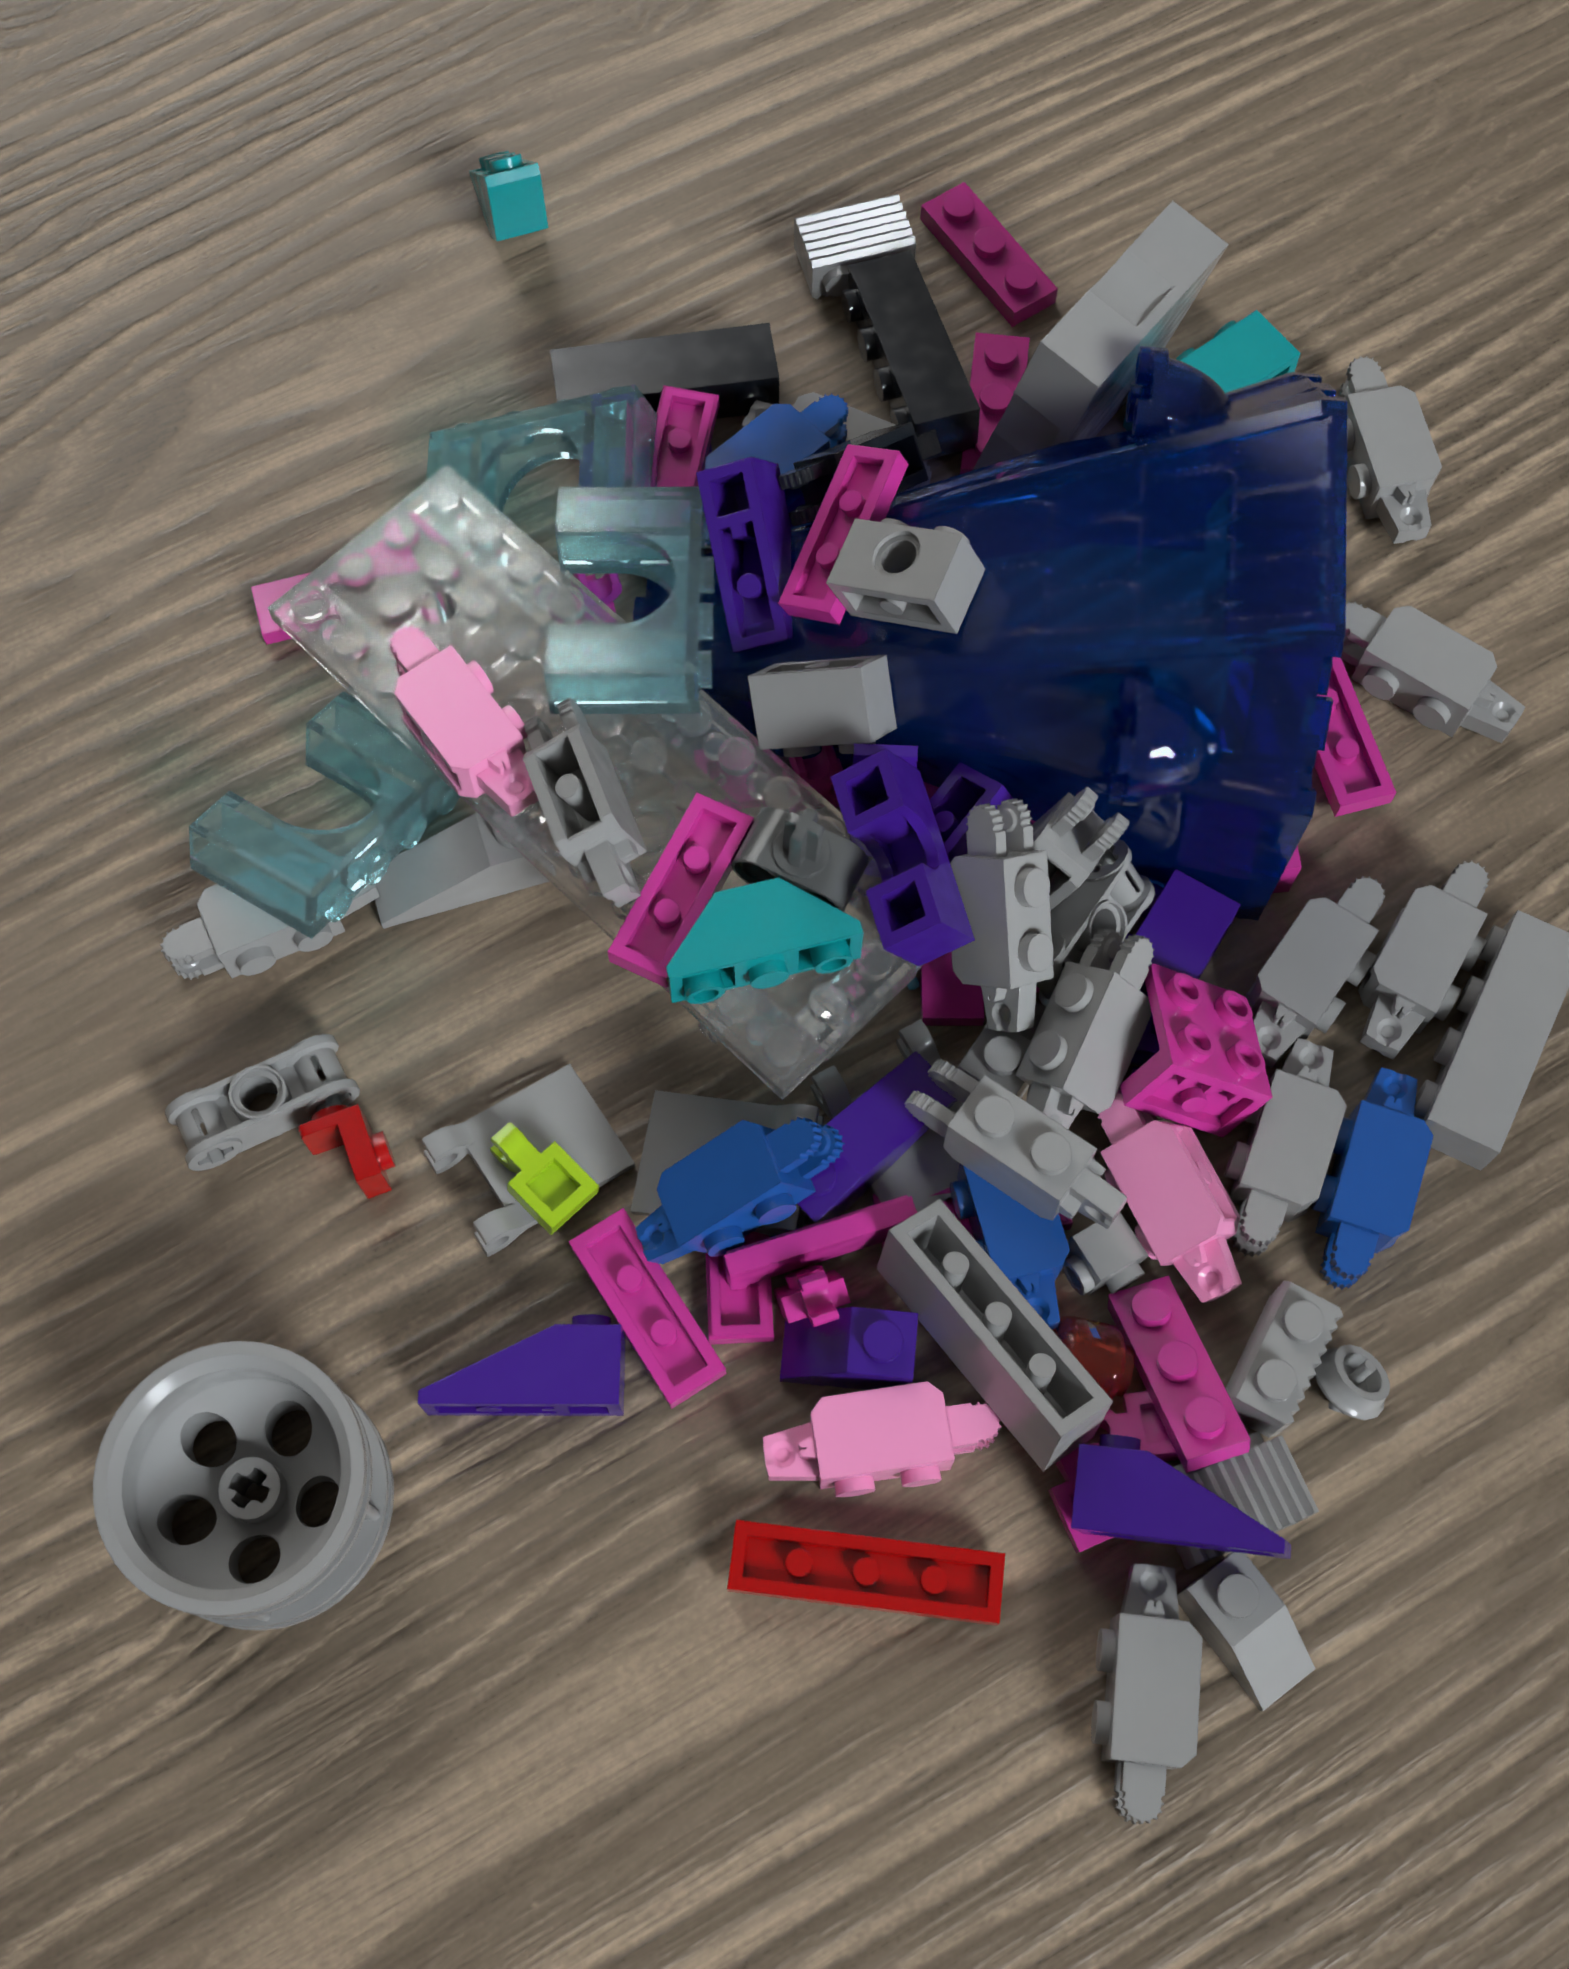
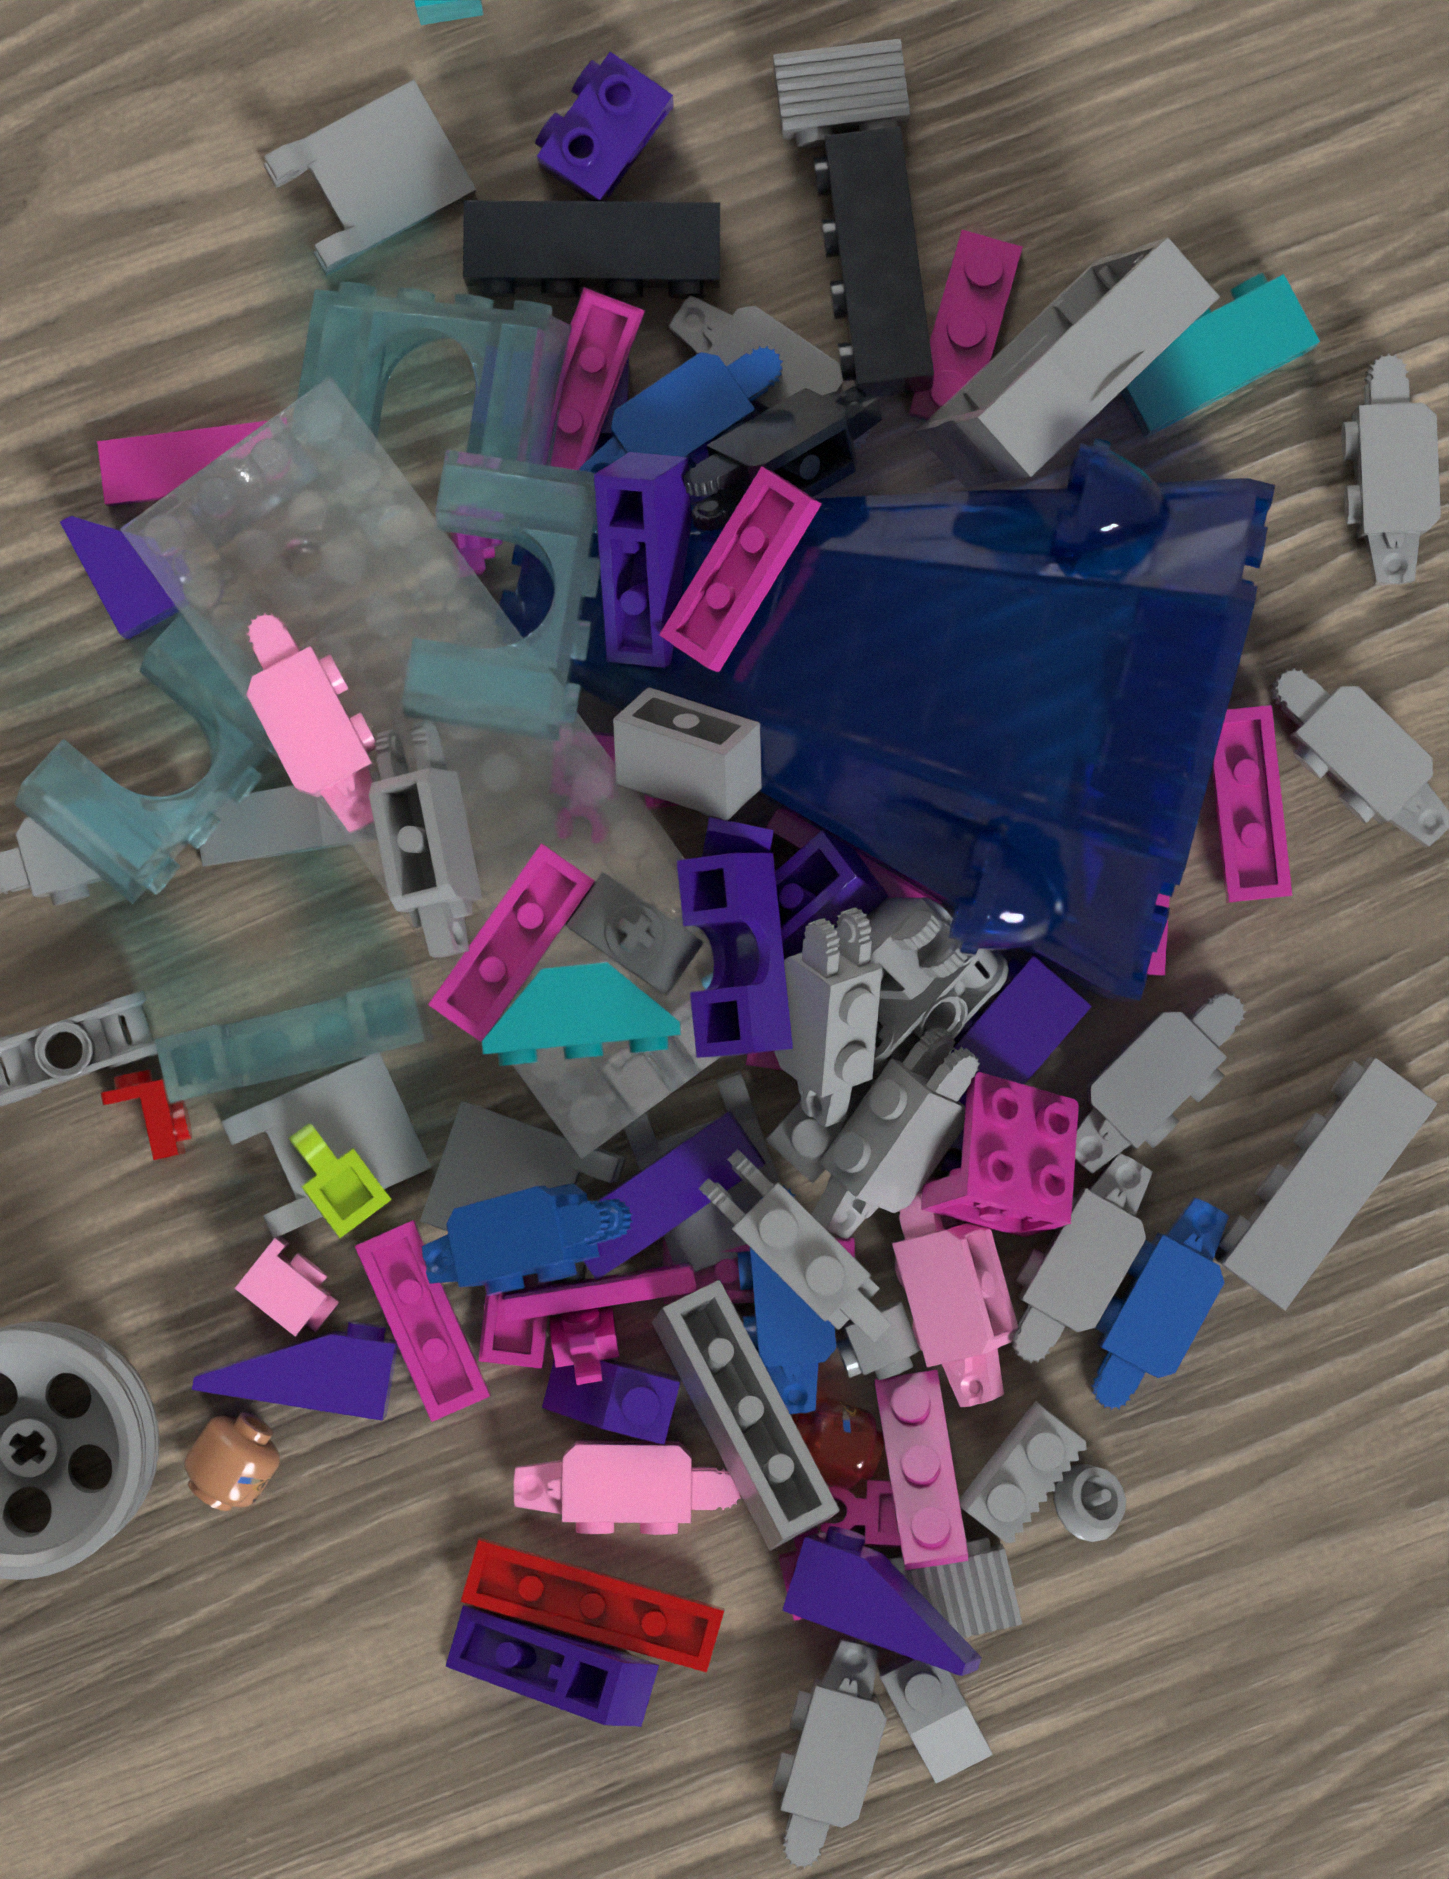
camera: 10 degrees right, 20 degrees up
(282, 680) = (119, 576): none -> dark purple slope
(423, 1078) = (294, 1040): none -> clear light blue arch
(468, 1479) = (232, 1461): none -> nougat head
(471, 360) = (377, 171): none -> light grey flag
(505, 1295) = (288, 1289): none -> bright pink brick
(664, 290) = (603, 128): none -> dark purple brick
(836, 1645) = (553, 1667): none -> dark purple slope
(906, 574) = (757, 641): light grey brick -> none
(988, 254) = (999, 113): dark pink plate -> none
(1422, 957) = (1270, 1084): light grey hinge -> none

